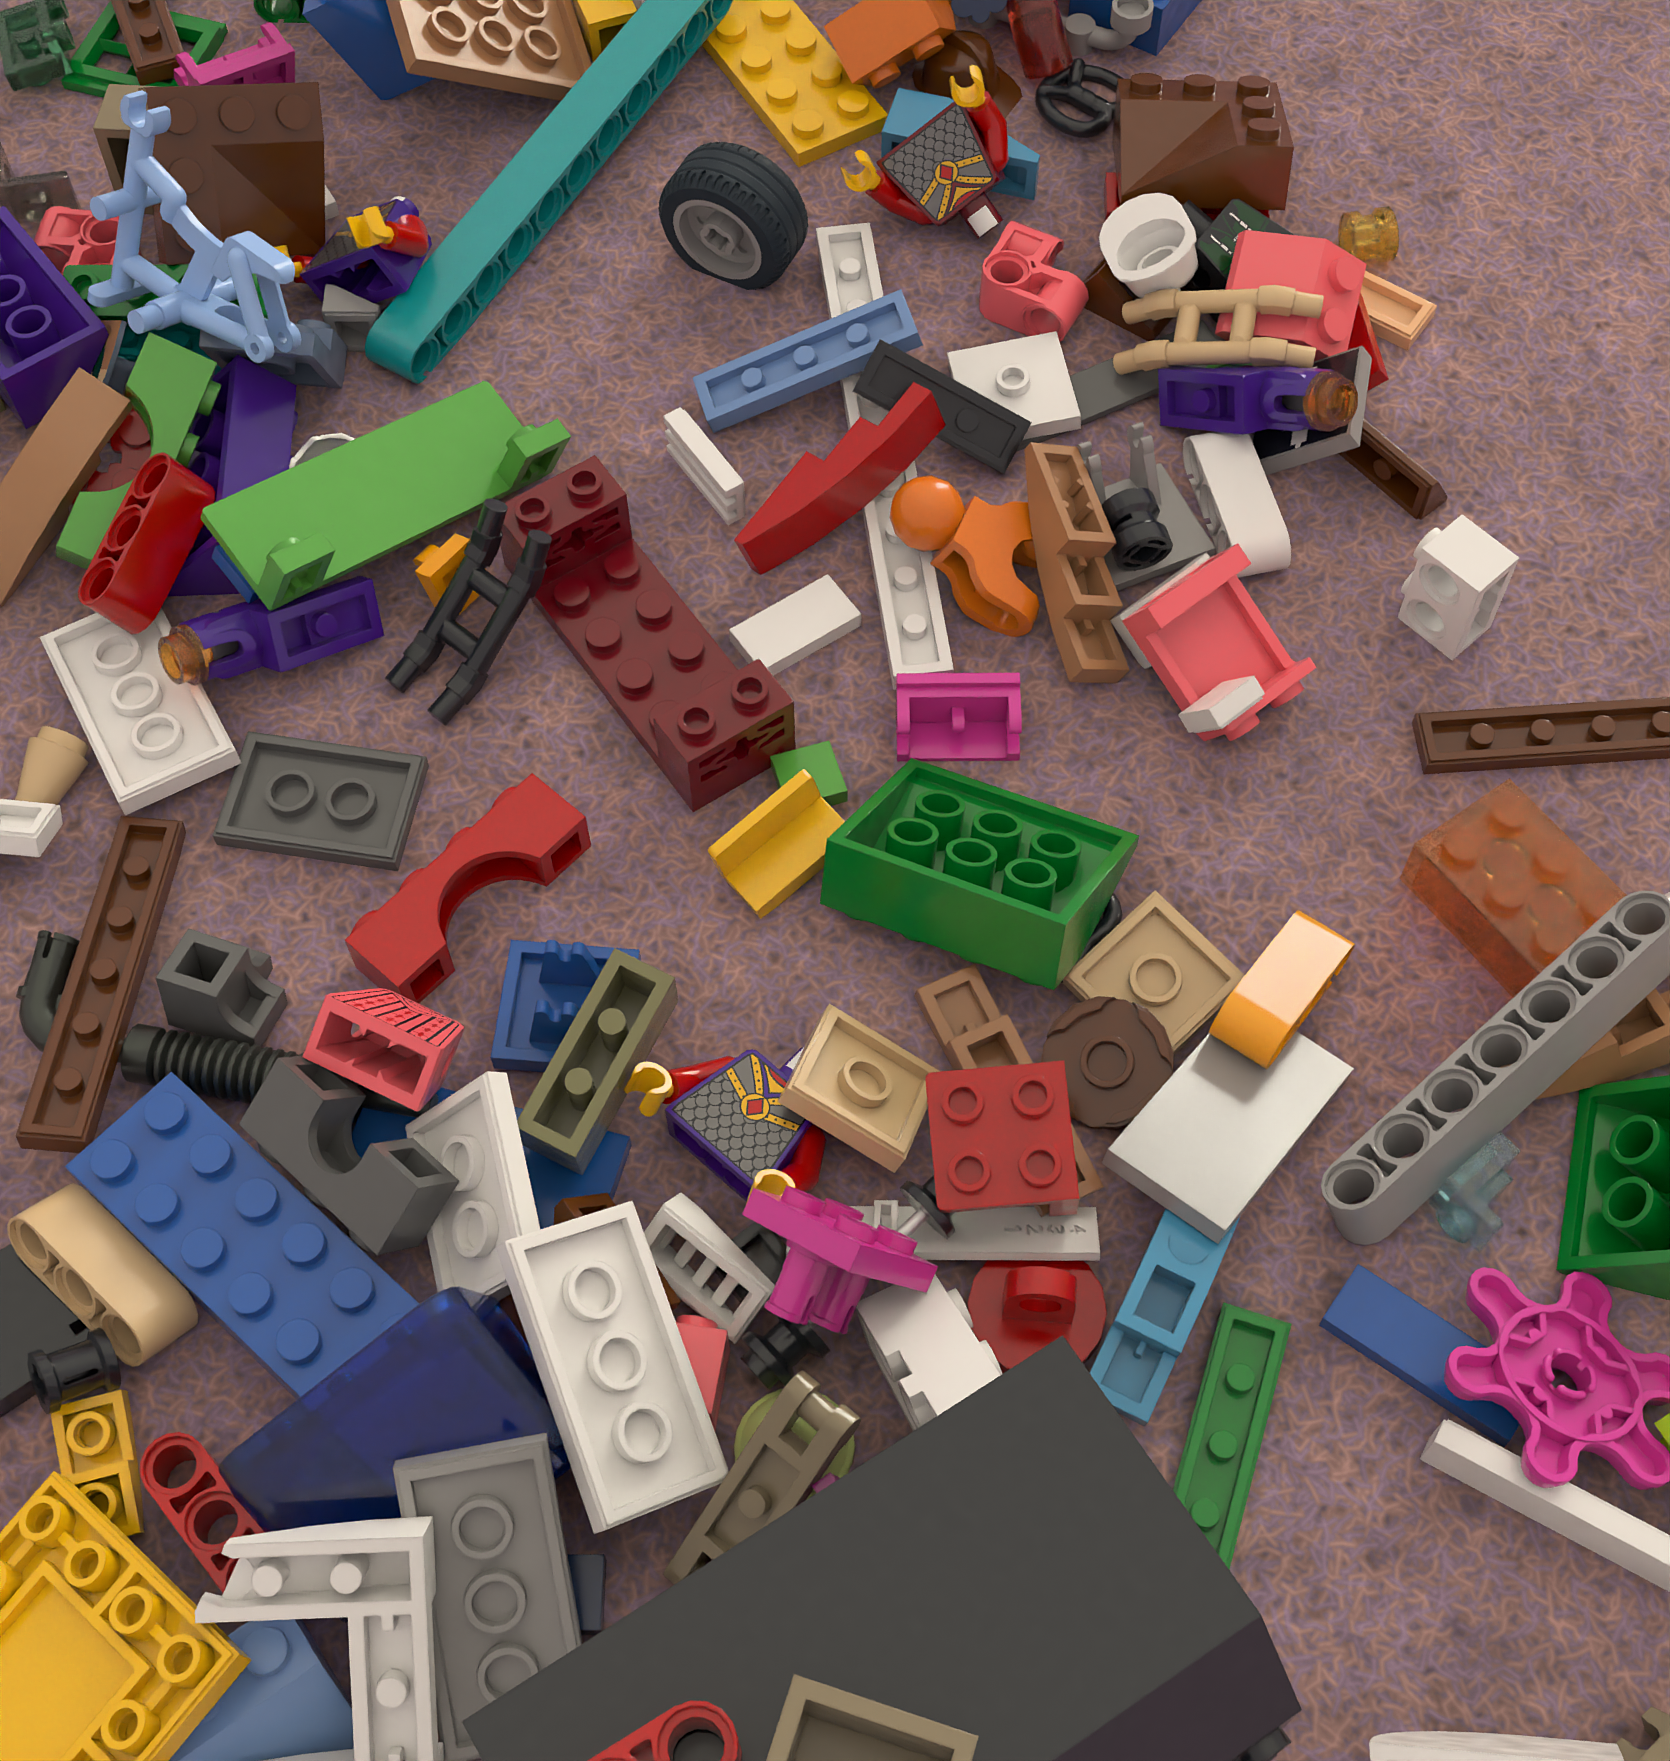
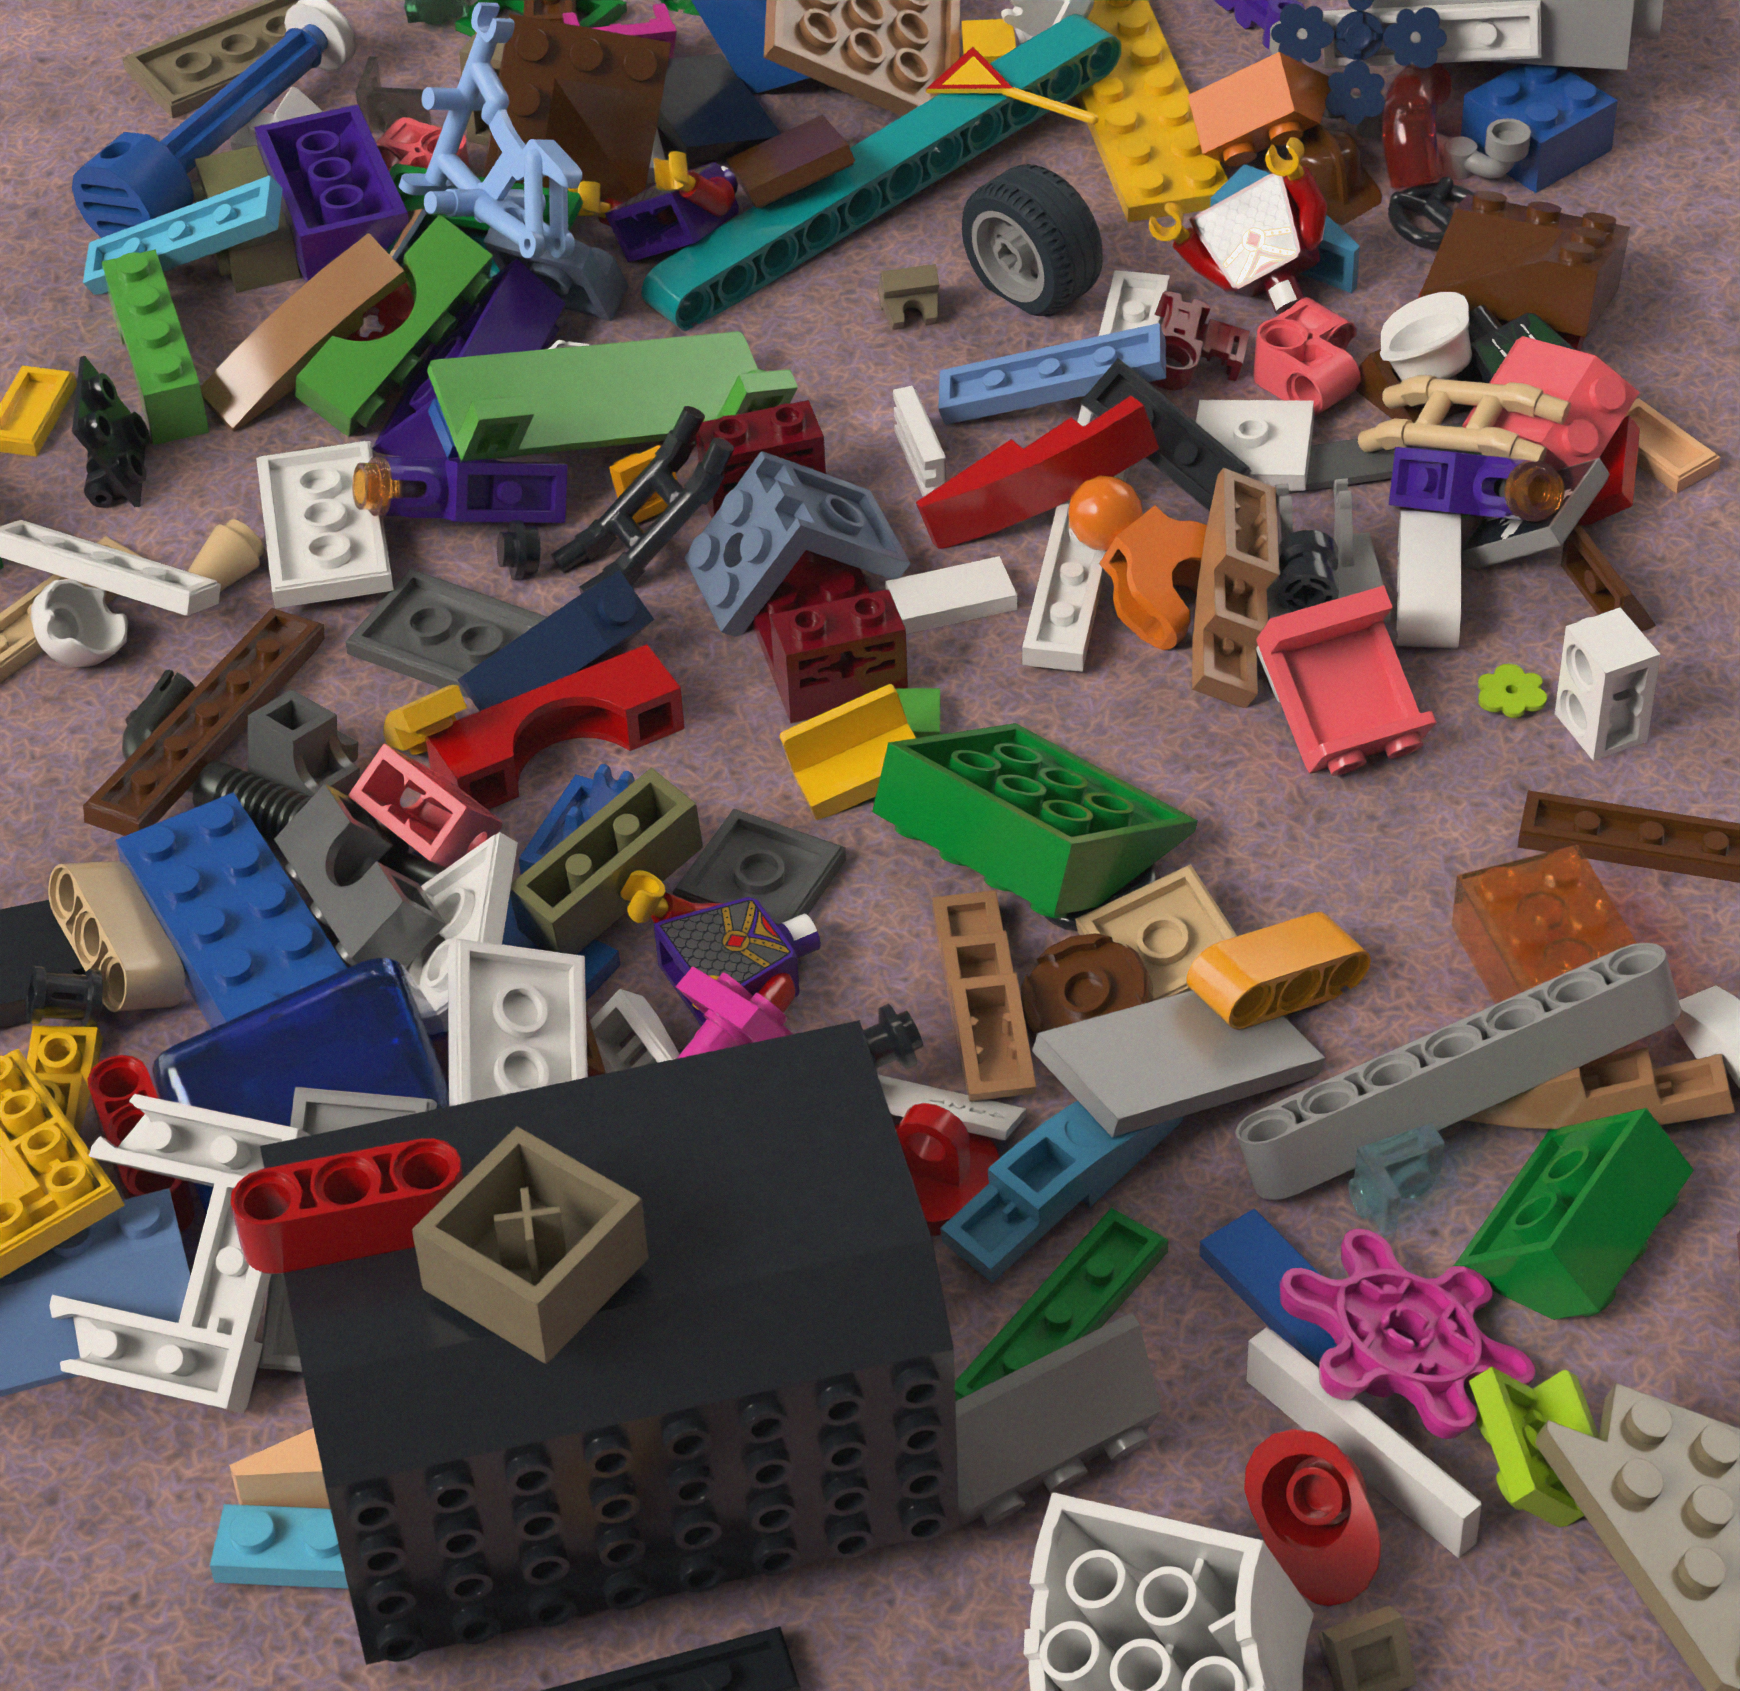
camera: 20 degrees right, 15 degrees down
(146, 544) = (373, 392): red beam -> none
(338, 921) = (411, 723): none -> yellow slope
(349, 316) = (636, 256): light grey slope -> none
(353, 682) = (519, 549): none -> black plate
(365, 134) = (710, 110): none -> black tile
(440, 795) = (561, 643): none -> dark blue slope
(465, 177) = (791, 161): none -> reddish brown tile
(612, 46) = (976, 75): none -> yellow piece
(625, 594) = (770, 524): none -> sand blue bracket
(630, 291) = (909, 288): none -> dark tan tile
(733, 1000) = (762, 862): none -> dark grey tile
(859, 1088) = (841, 952): tan plate -> none
(925, 287) = (1189, 337): none -> dark red piece
(958, 716) = (1071, 693): dark pink hinge -> none
(1002, 1138) = (950, 1003): red bracket -> none
(1222, 705) = (1323, 727): white tile -> none
(1306, 1564) = (1053, 1419): none -> light grey slope
(1348, 593) = (1511, 691): none -> lime plant
(1370, 234) = (1674, 382): clear yellow wheel -> none
(1568, 1622) = (1314, 1515): none -> red piece

